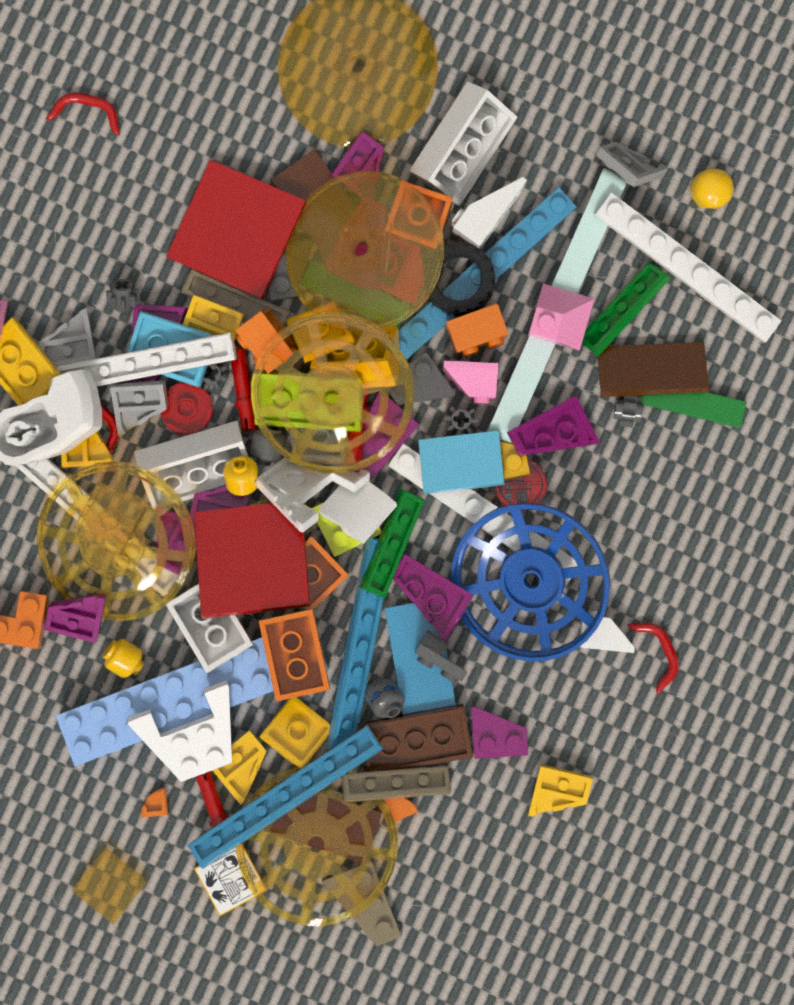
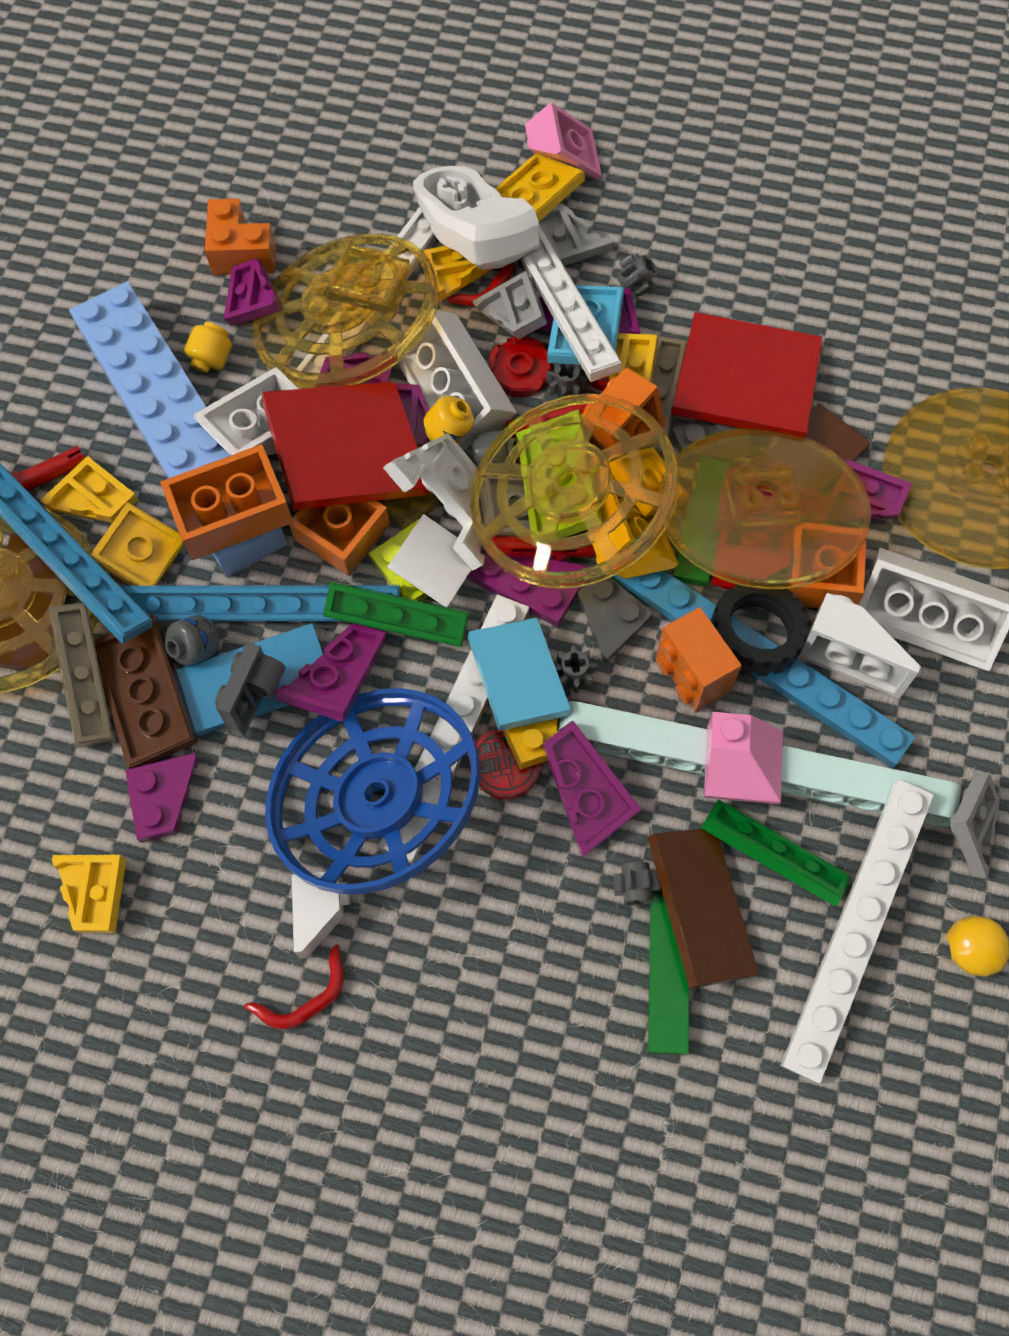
camera: 80 degrees right, 20 degrees down
(89, 100) = (850, 208): red animal -> none
(155, 804) = (36, 416): orange tile -> none
(195, 745) = (103, 425): white wing -> none
(401, 808) = (51, 692): orange tile -> none
(474, 379) = (634, 671): bright pink slope -> none

